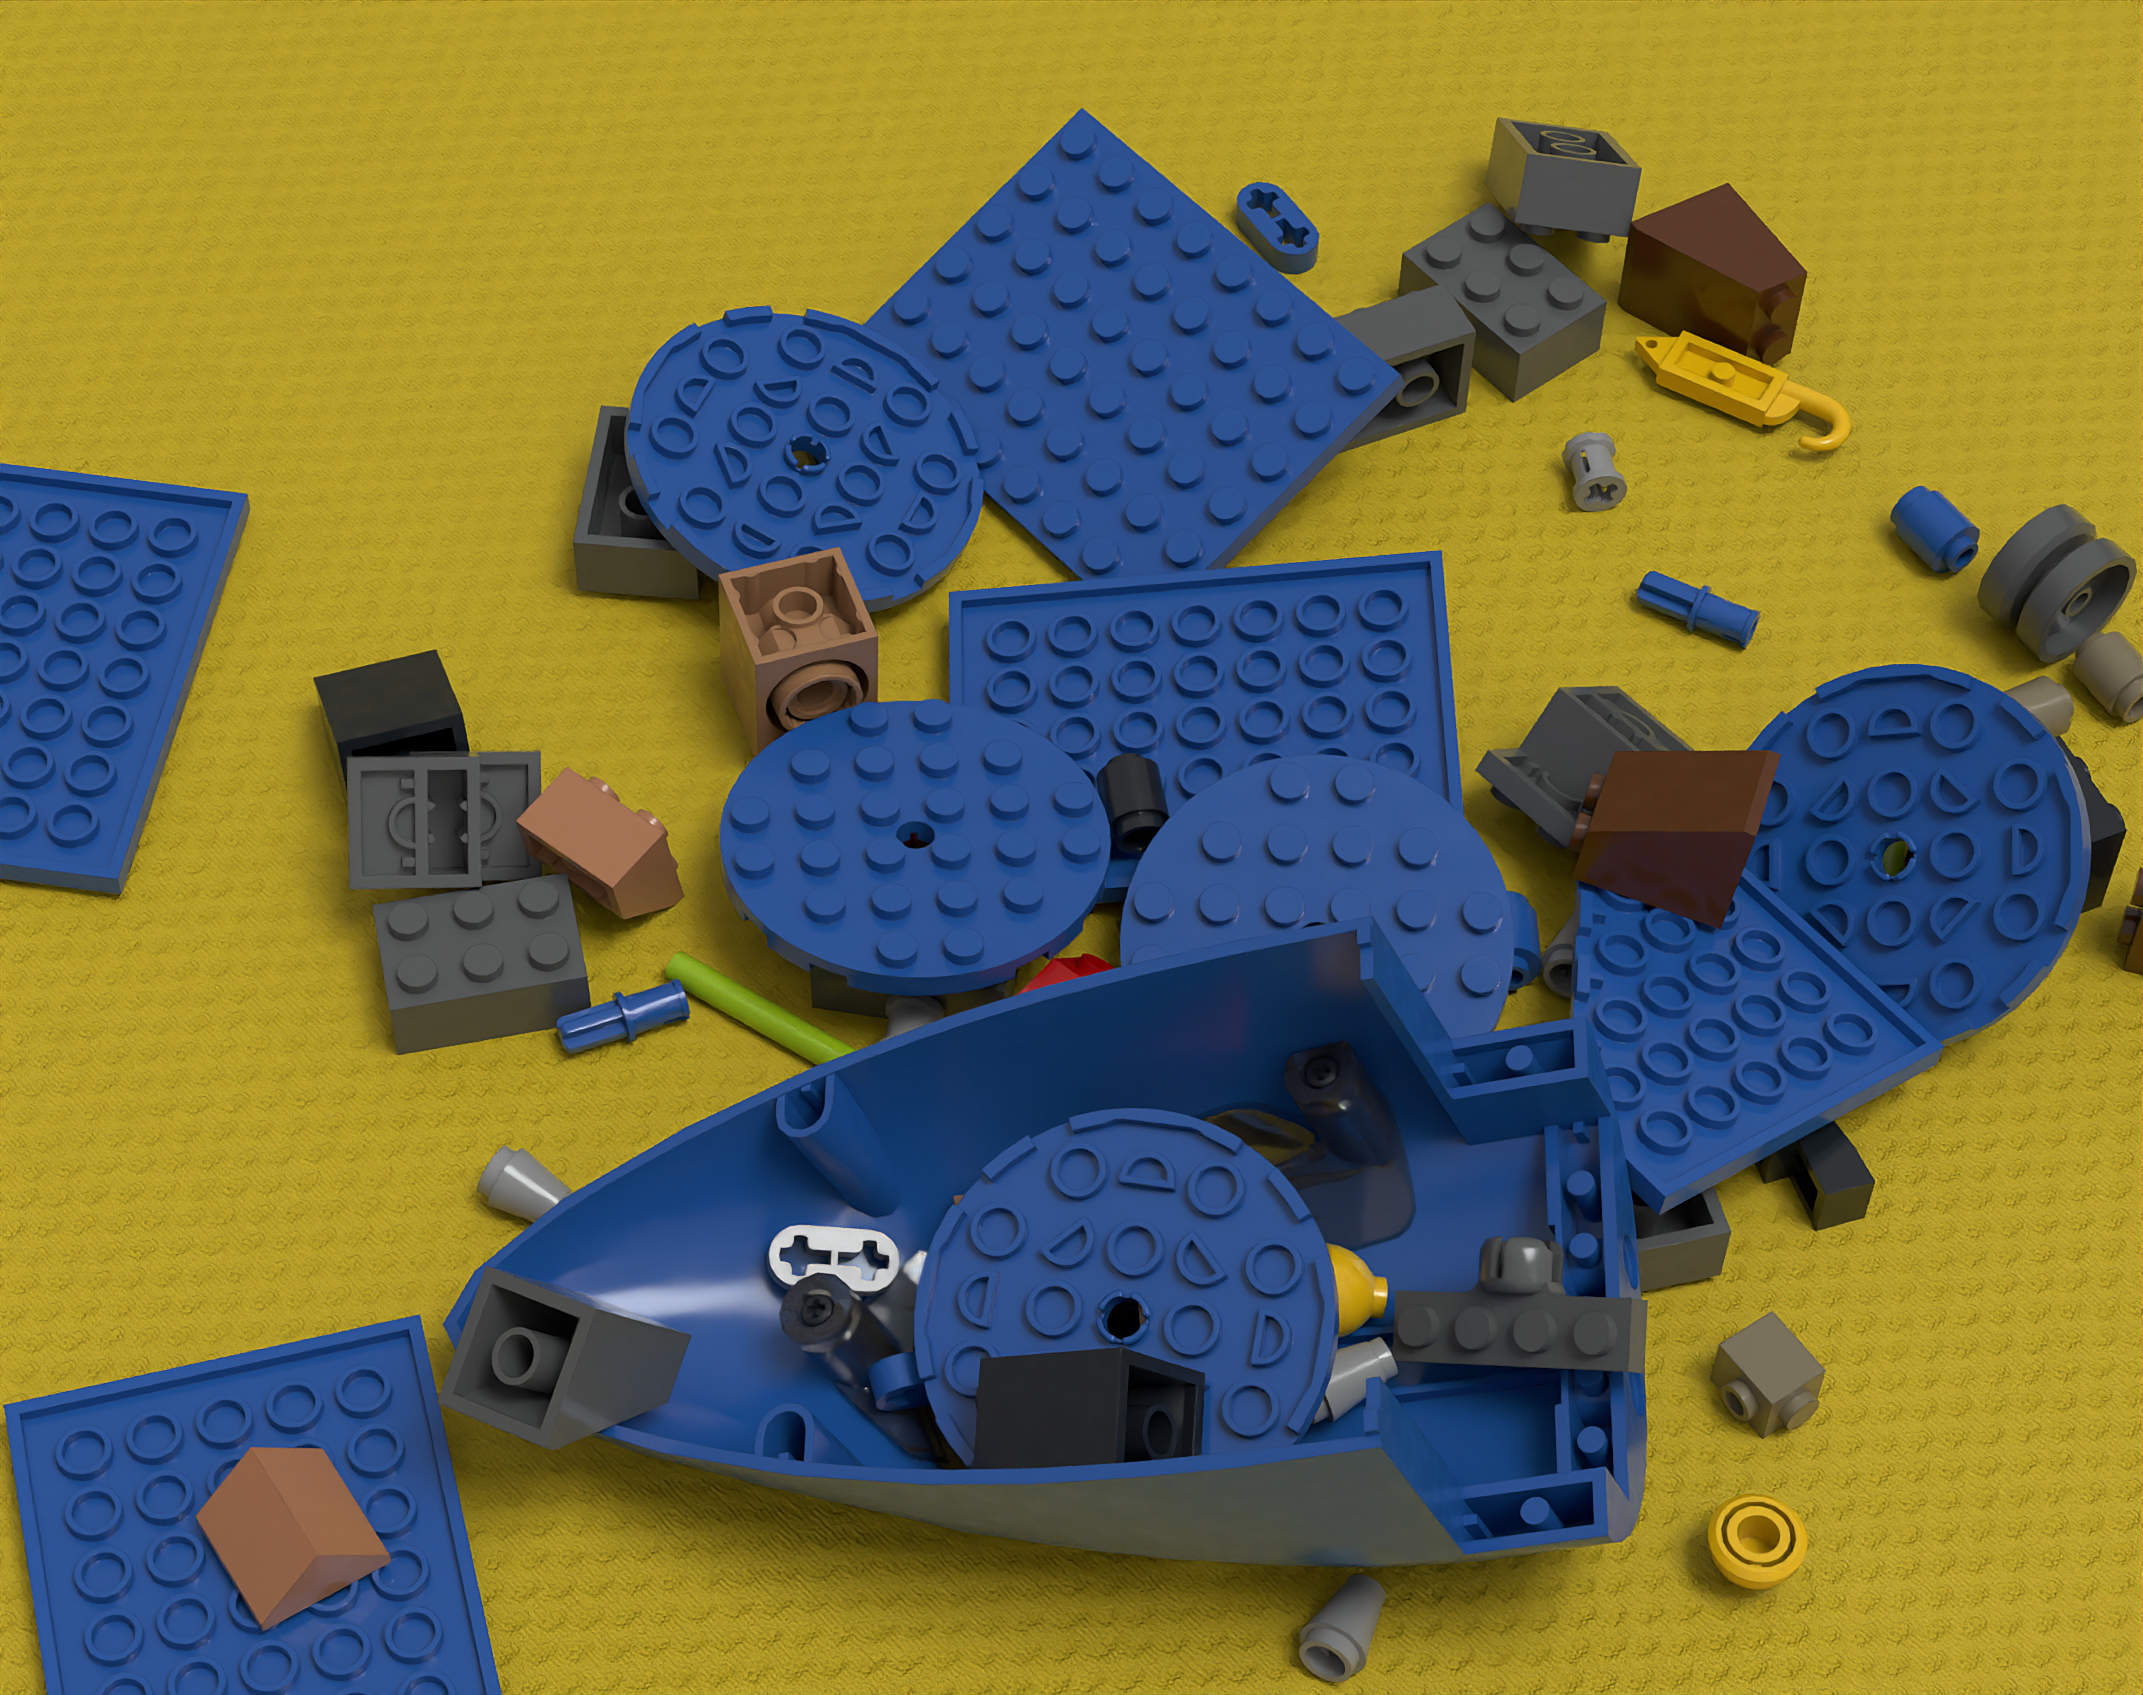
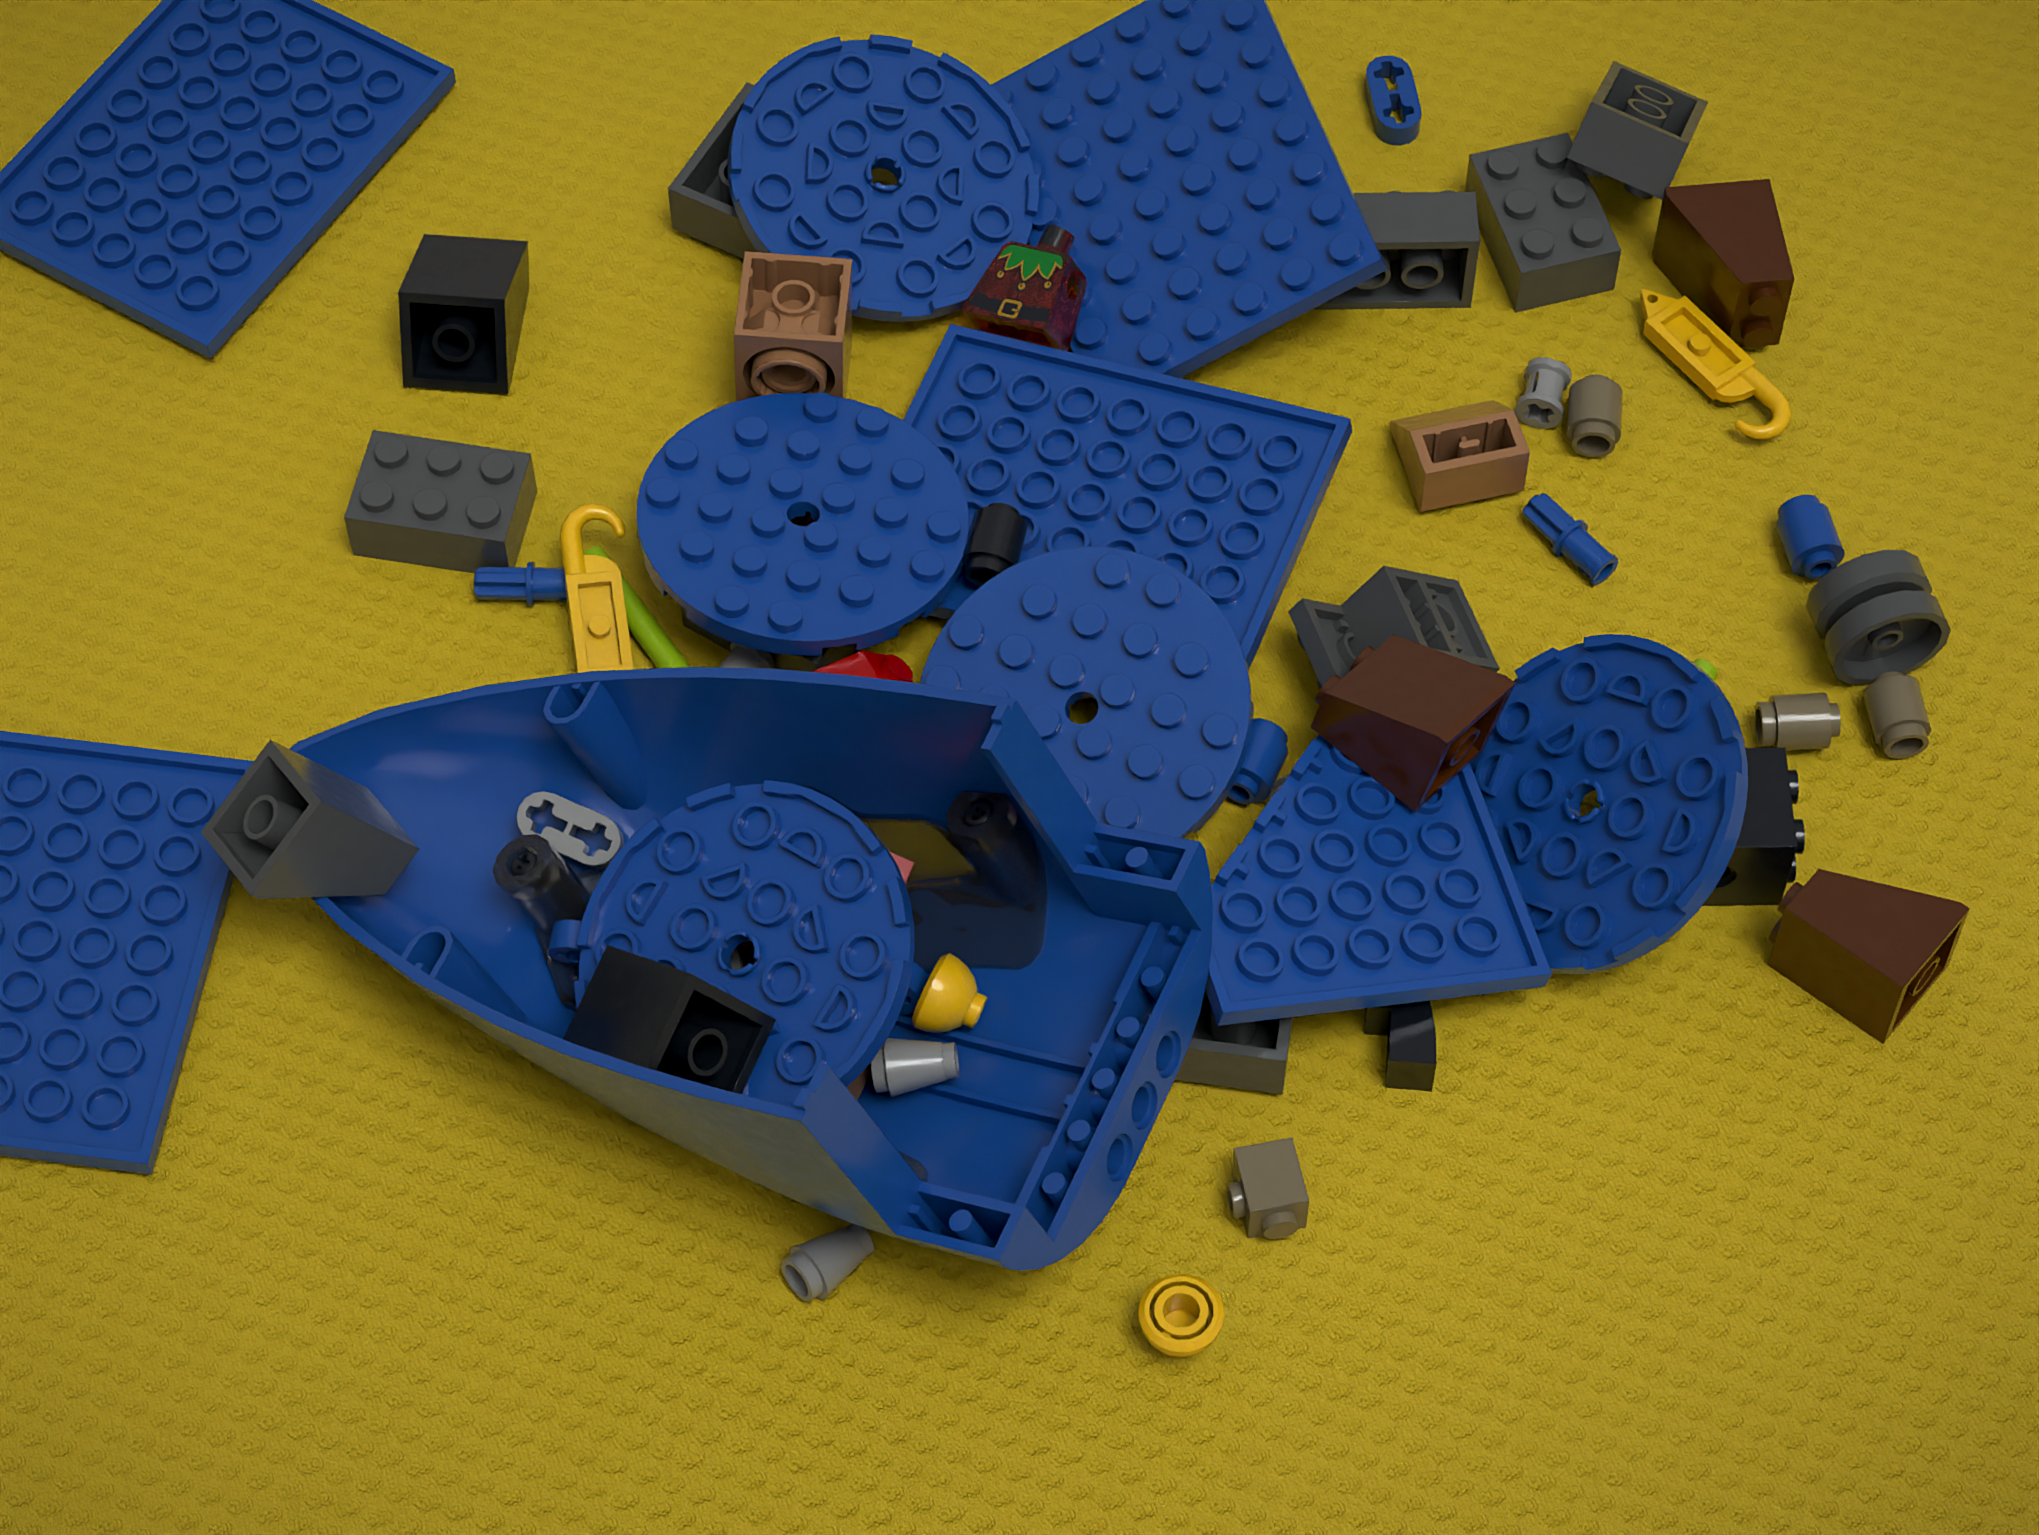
camera: 25 degrees right, 5 degrees up
(288, 1531) = (80, 891): nougat slope -> none
(440, 818) = (456, 379): dark grey bracket -> none
(520, 1184) = (382, 683): light grey cone -> none
(602, 845) = (569, 443): nougat slope -> none
(715, 1010) = (595, 596): none -> yellow plate
(1019, 530) = (1030, 292): none -> clear red torso
(1520, 1317) = (1049, 1065): dark grey plate -> none
(1549, 555) = (1462, 454): none -> medium nougat slope
(1658, 477) = (1594, 415): none -> dark tan brick

